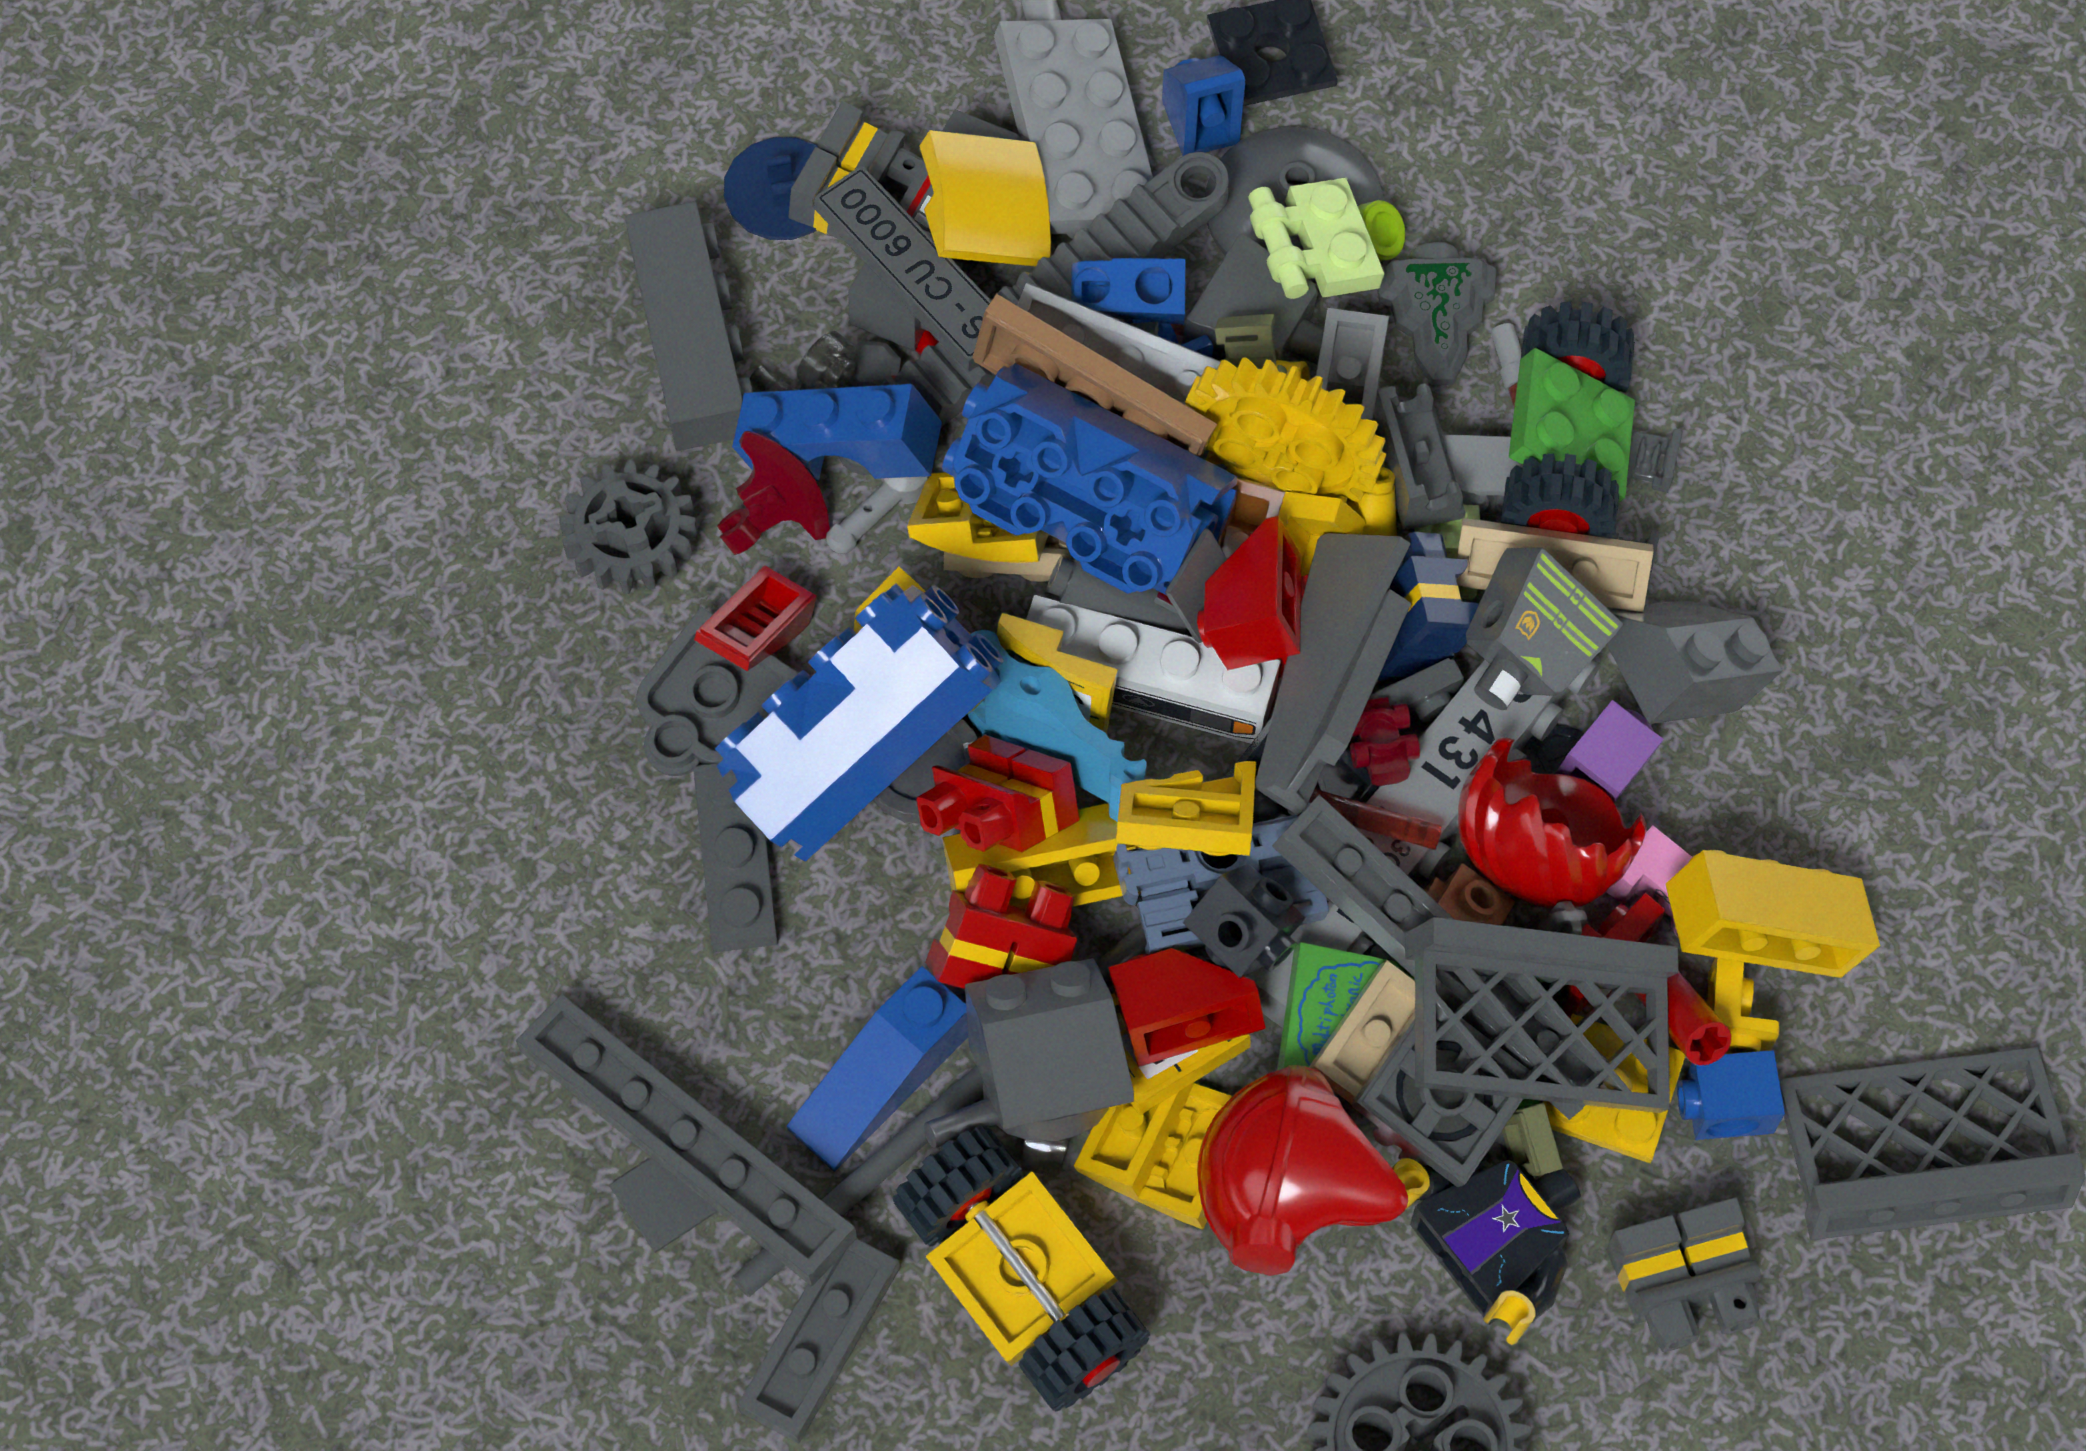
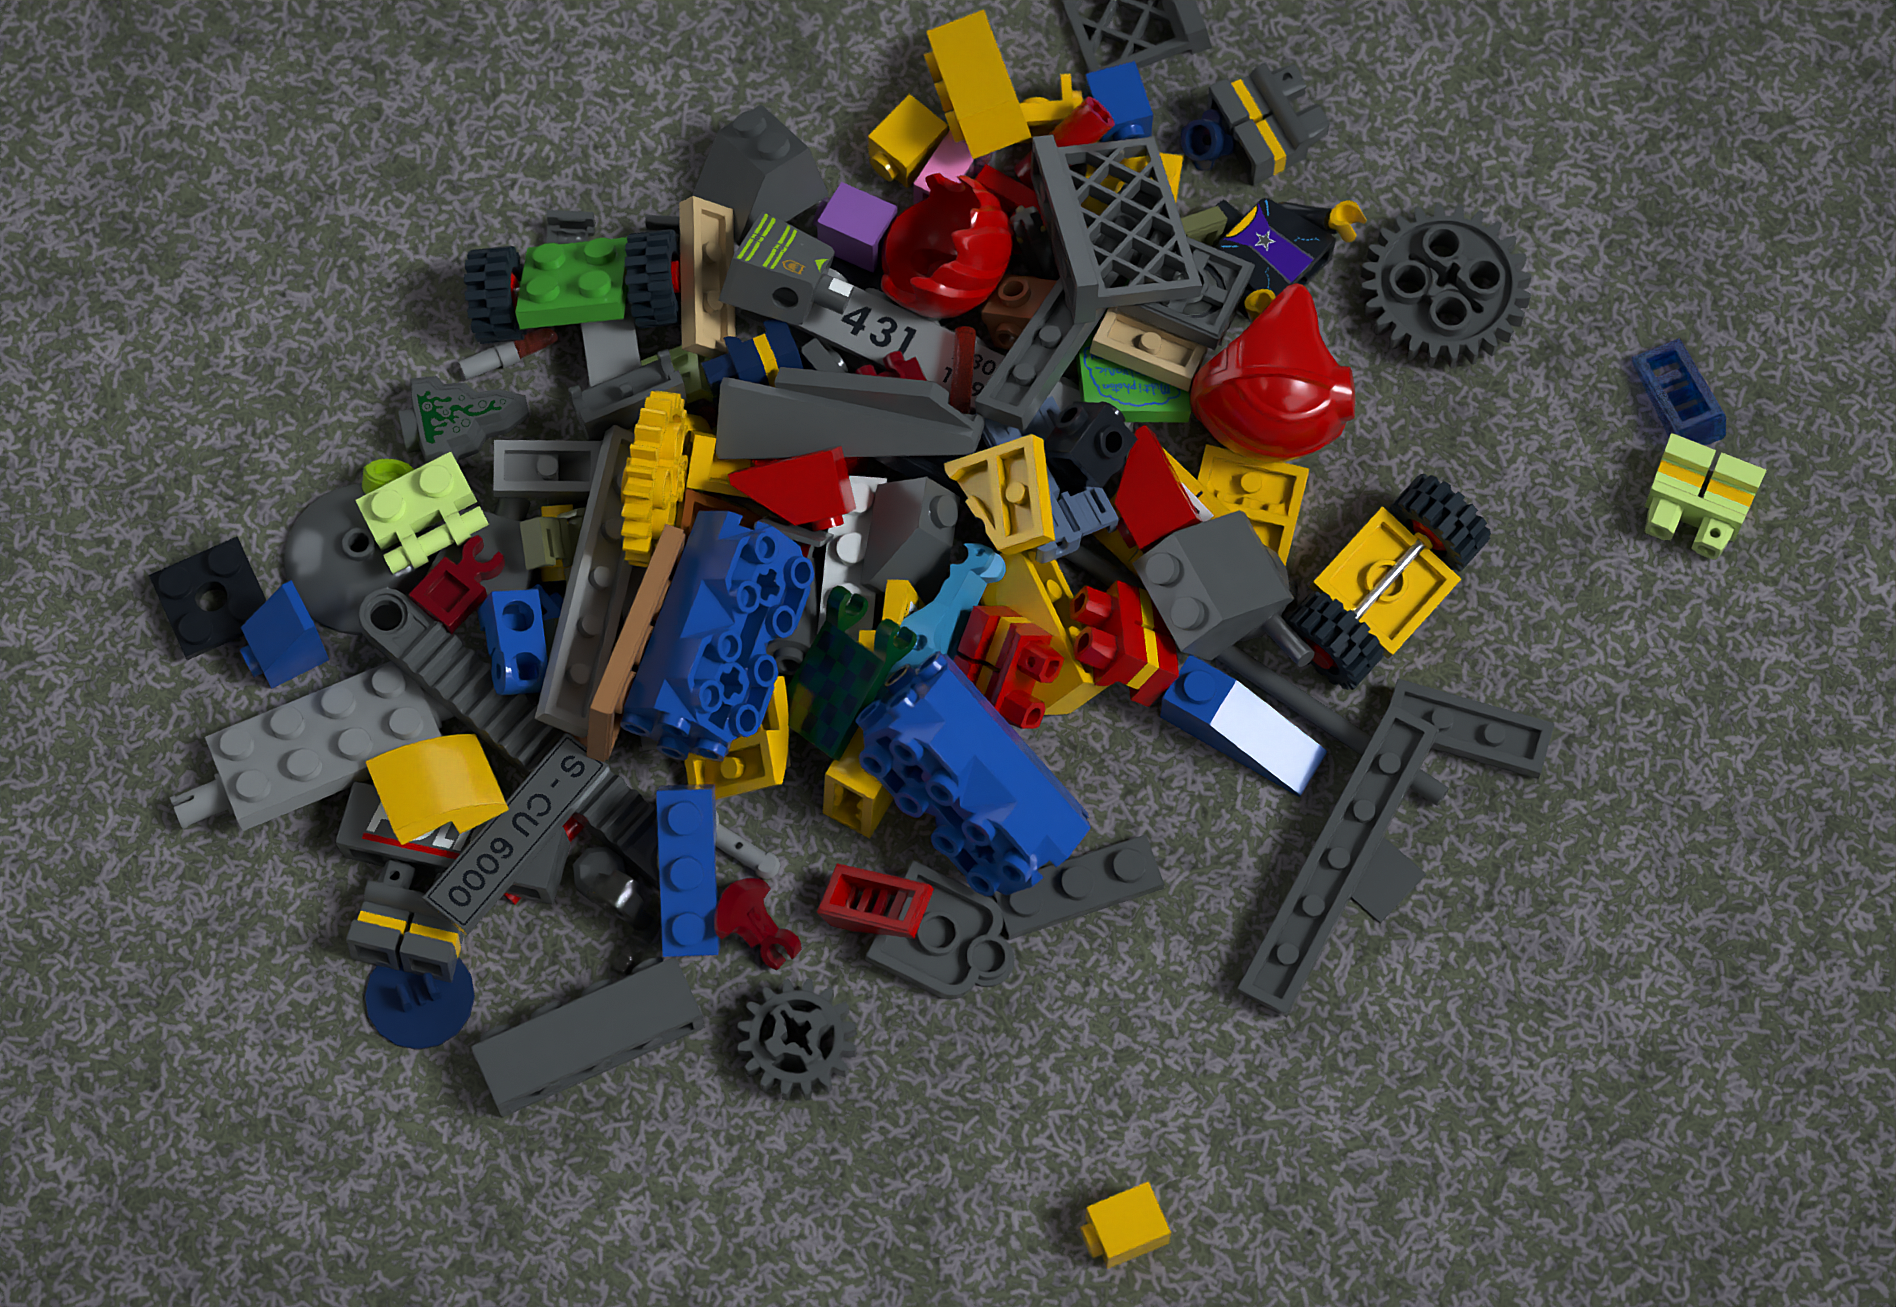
camera: 100 degrees left, 5 degrees up
(321, 819) = (1125, 1226): none -> yellow brick
(1017, 605) = (842, 674): none -> dark green flag
(1175, 720) = (910, 536): none -> dark grey slope
(1217, 248) = (455, 590): none -> dark red plate
(1670, 1191) = (1194, 140): none -> dark blue plate
(1718, 823) = (905, 141): none -> yellow brick

